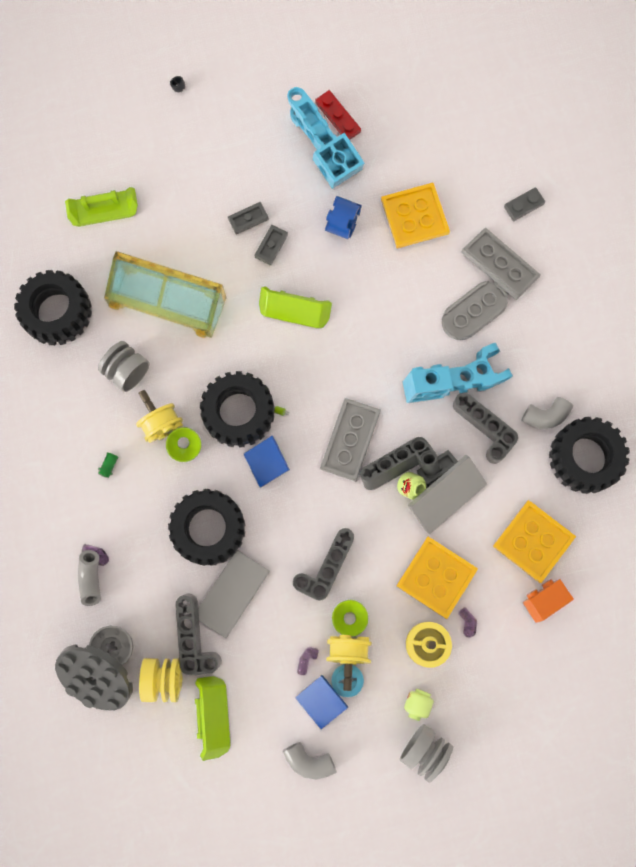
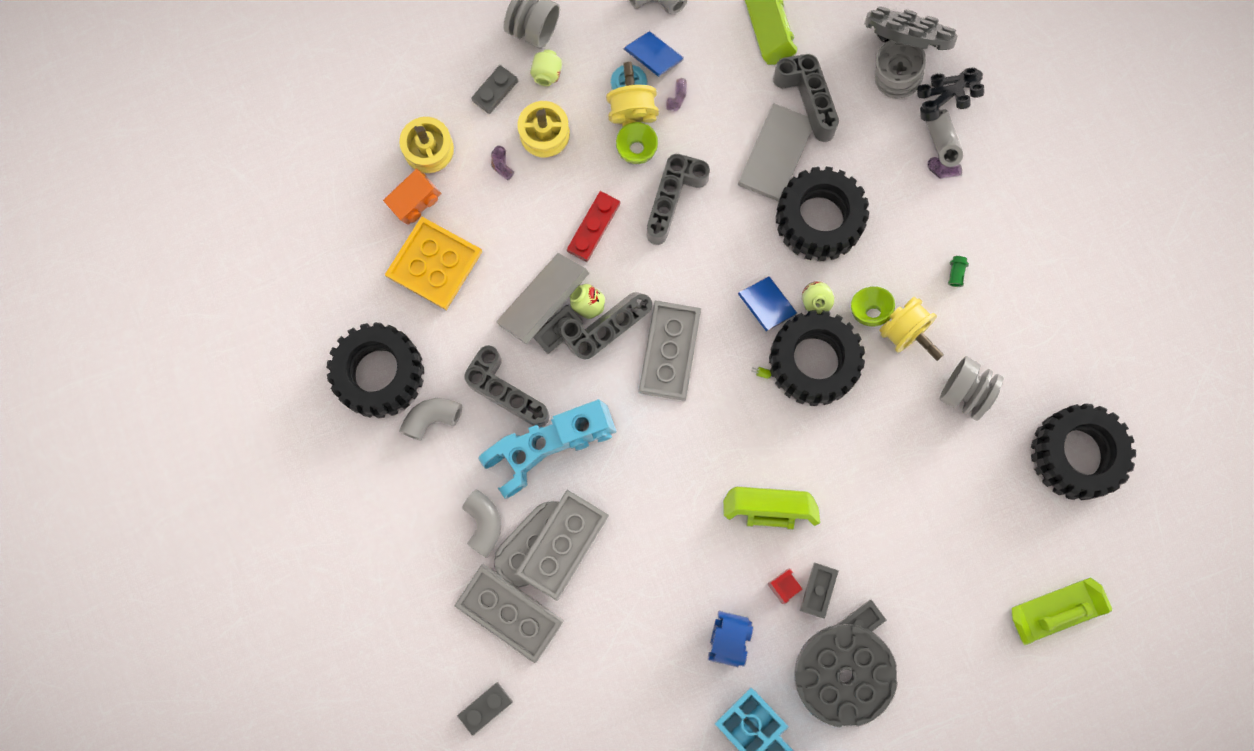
camera: 170 degrees right, 0 degrees up
(53, 632) = (968, 78): none -> black plant
(160, 680) = (837, 43): light yellow wheel -> none
(165, 293) = (944, 491): windscreen -> none
(225, 458) = (818, 297): none -> yellowish green head
(261, 200) = (851, 701): none -> dark grey plate
(296, 251) = (785, 586): none -> red panel
(396, 553) = (593, 226): none -> red plate
(415, 215) = (632, 665): yellow plate -> none
(437, 577) = (543, 205): yellow plate -> none
(455, 303) = (562, 545): none -> light grey tile
(466, 694) = (494, 89): none -> dark grey plate
(510, 327) = (487, 522): none -> light grey cylinder
(532, 646) = (426, 144): none -> light yellow wheel

